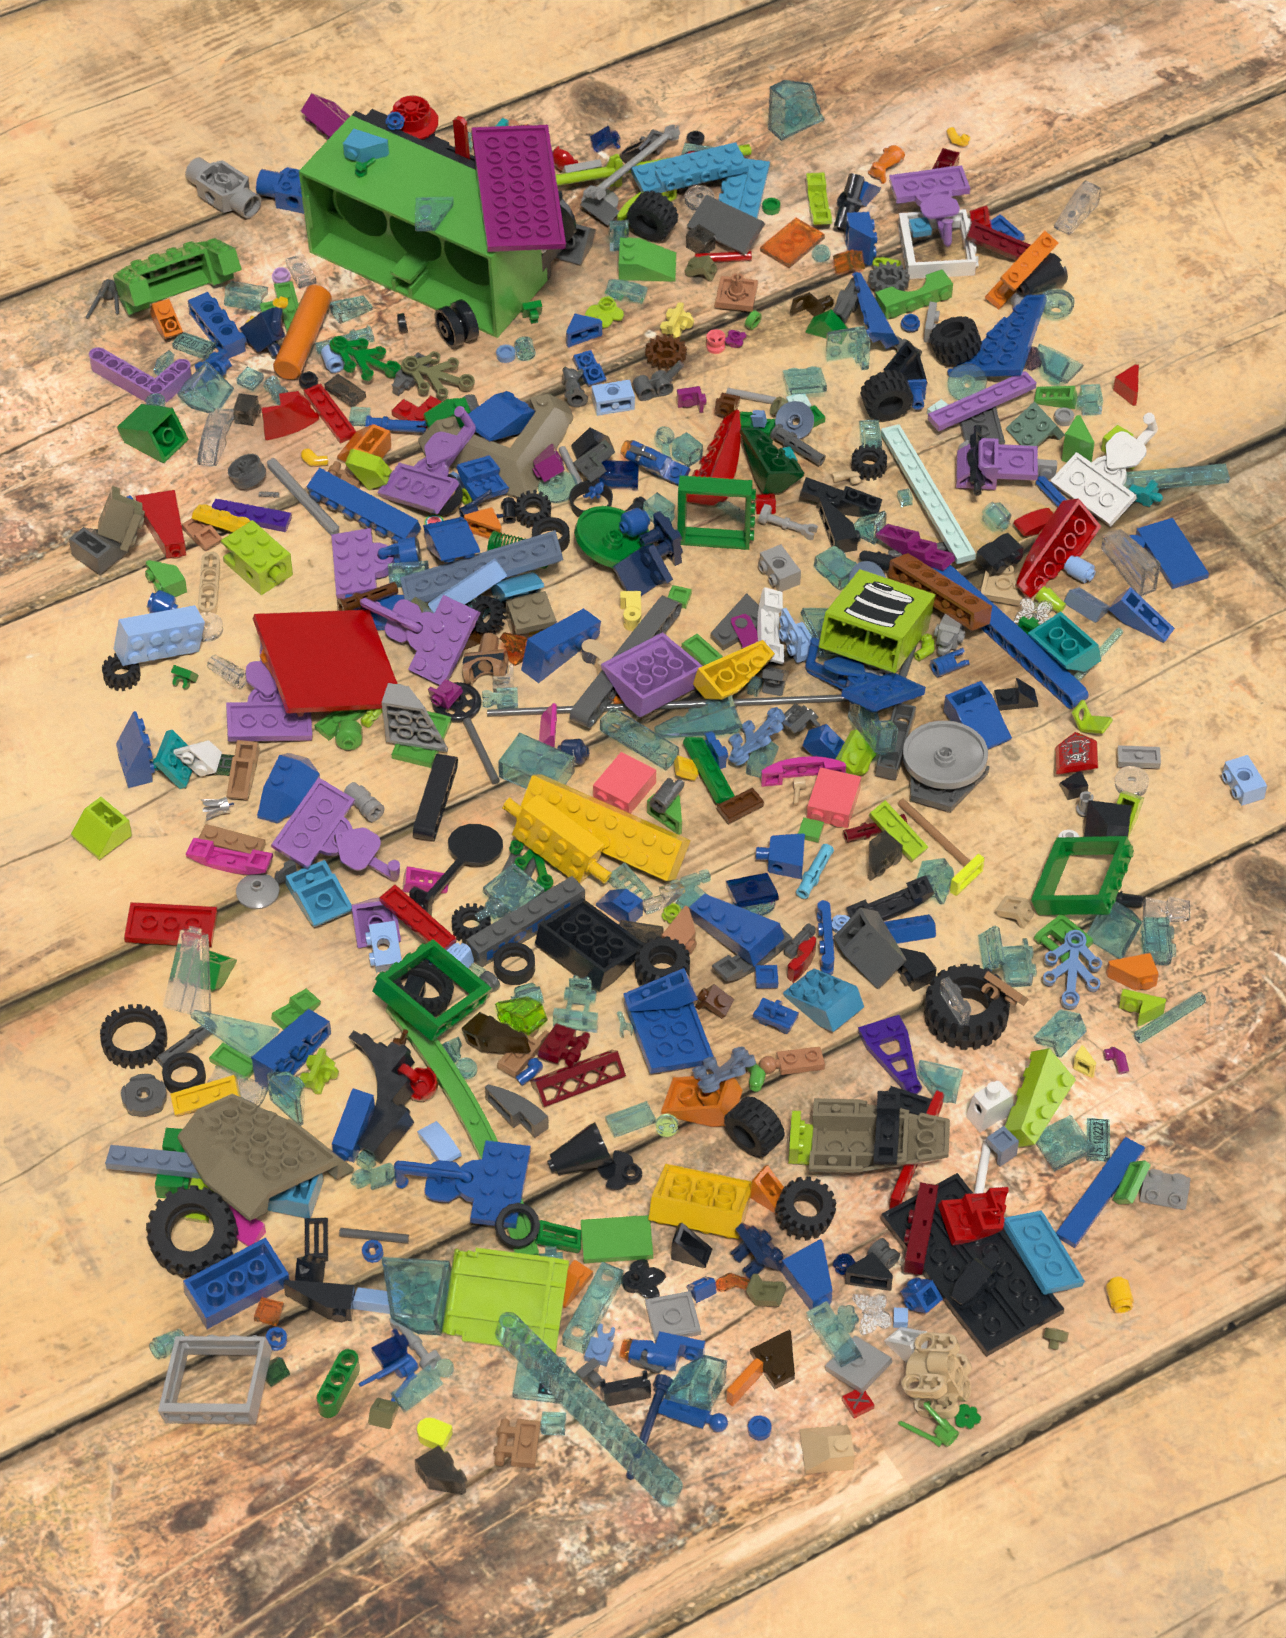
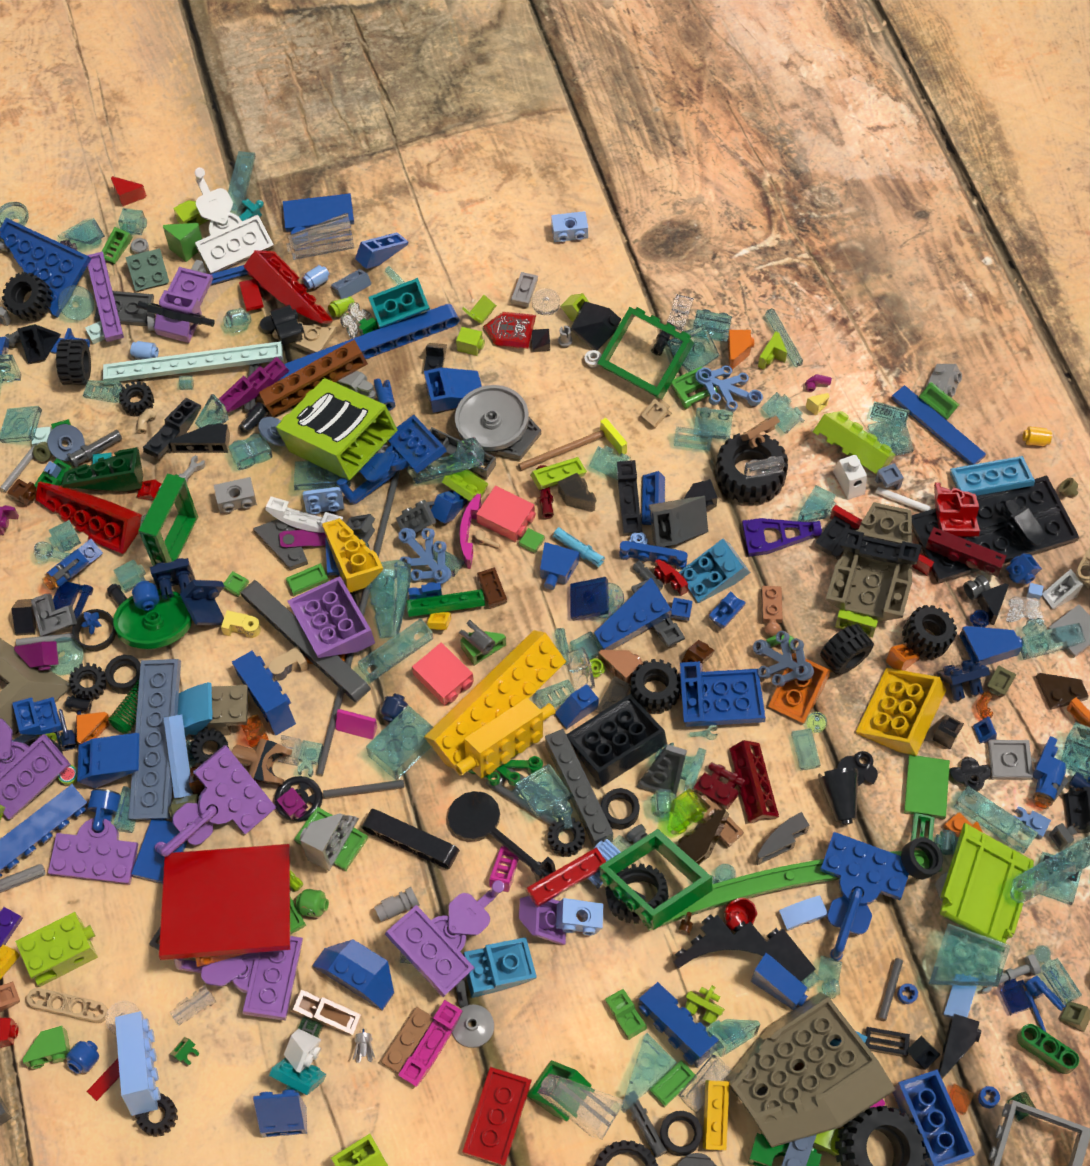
camera: 75 degrees left, 10 degrees up
(376, 594) = (149, 860): reddish brown pin -> none
(534, 1068) = (742, 818): blue arm -> none
(558, 985) = (665, 770): none -> dark grey wing
(929, 452) = (144, 350): none -> light blue brick
(1046, 720) = (470, 341): none -> lime brick

